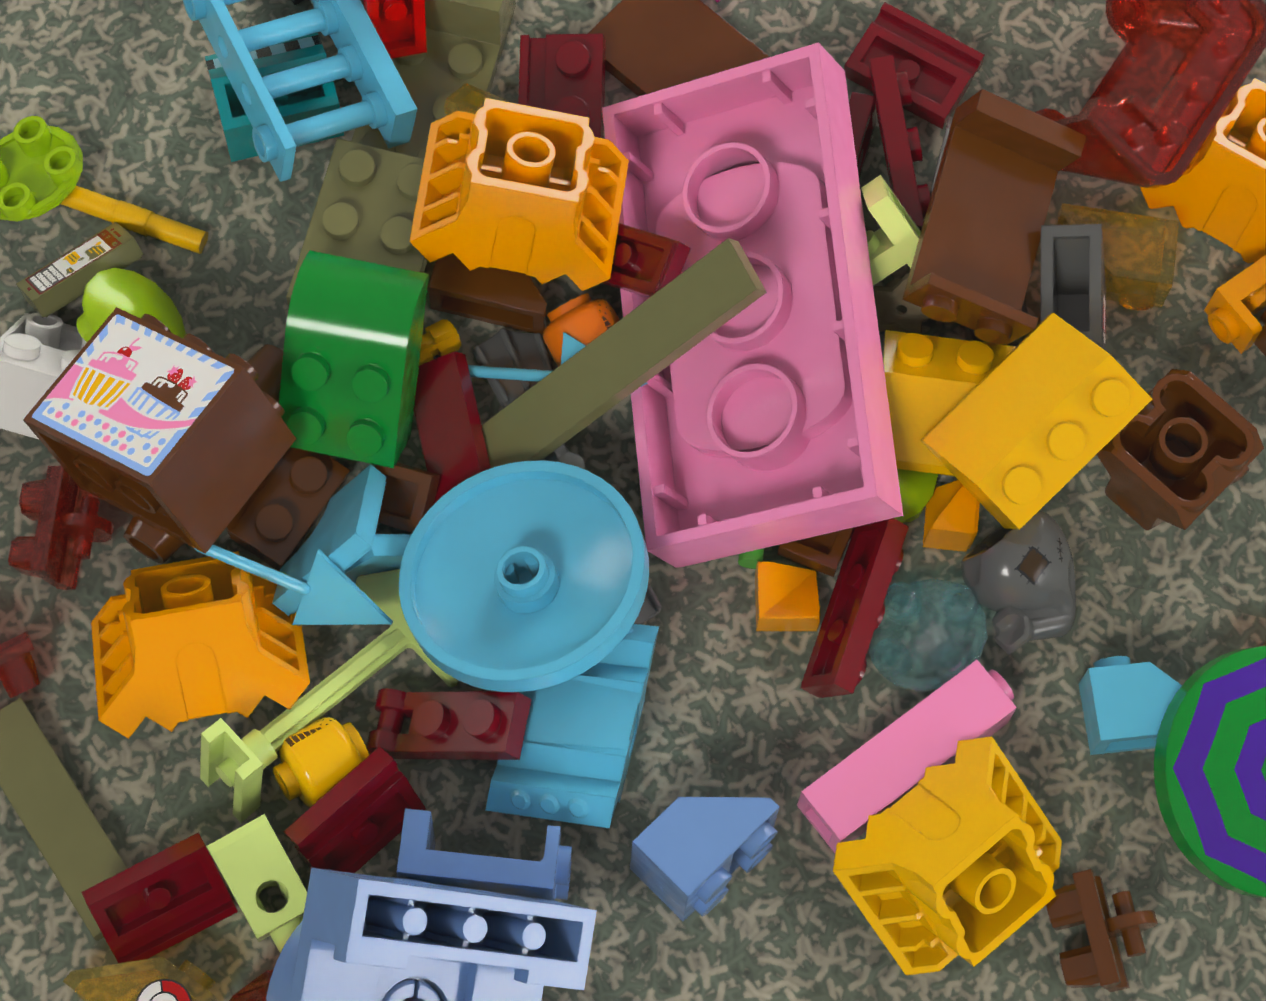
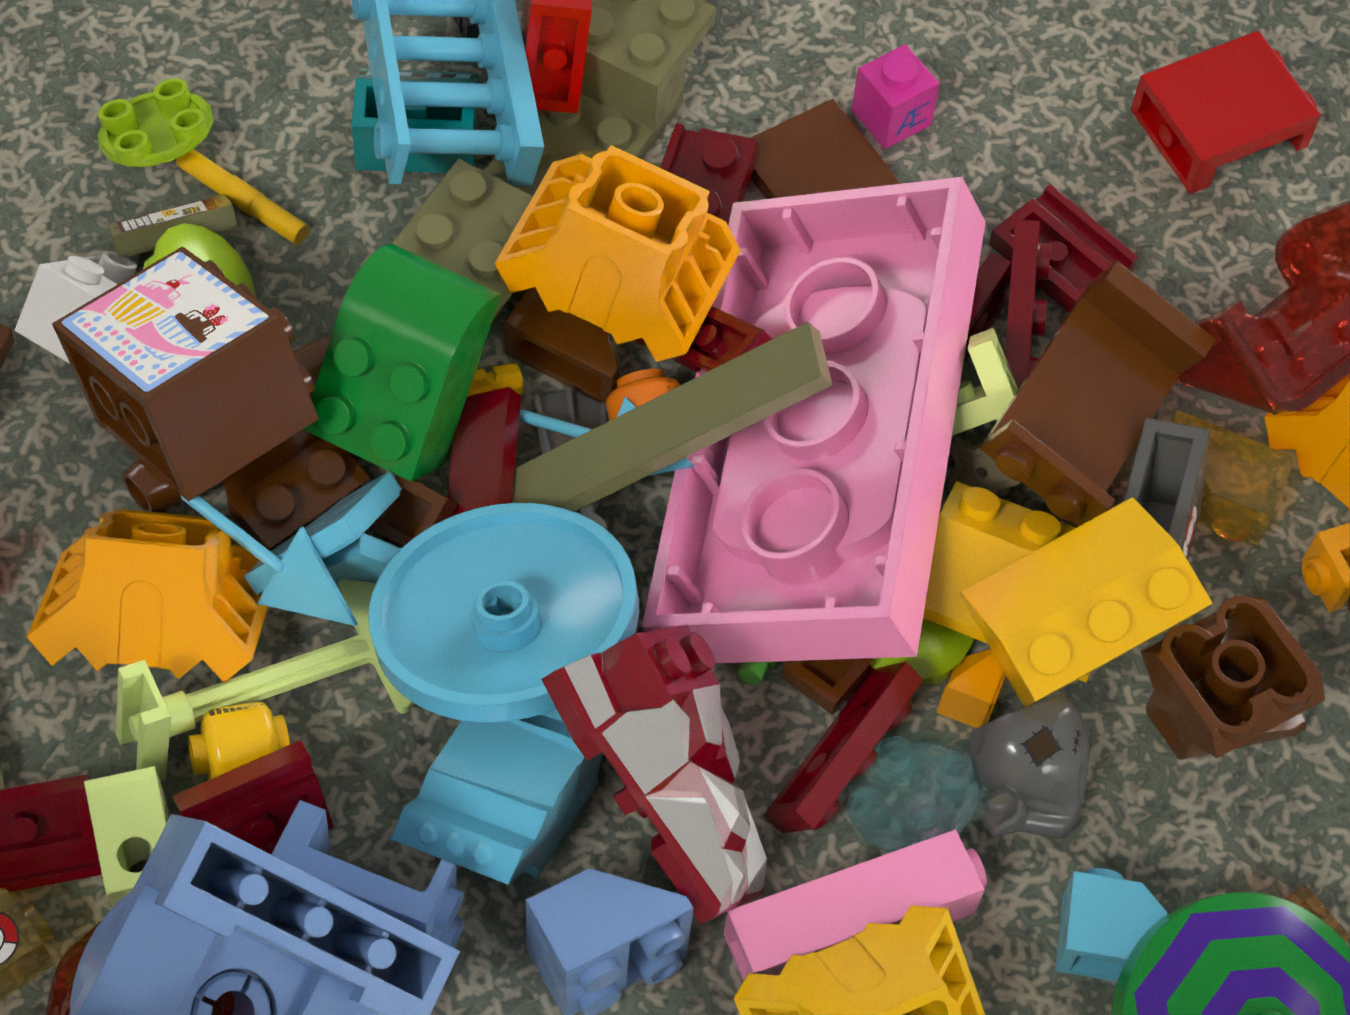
camera: 15 degrees right, 10 degrees down
(64, 529) = (65, 456): clear red hips -> none
(451, 725) = (384, 743): dark red plate -> none
(714, 664) = (664, 731): none -> wedge
(786, 598) = (775, 721): light orange slope -> none

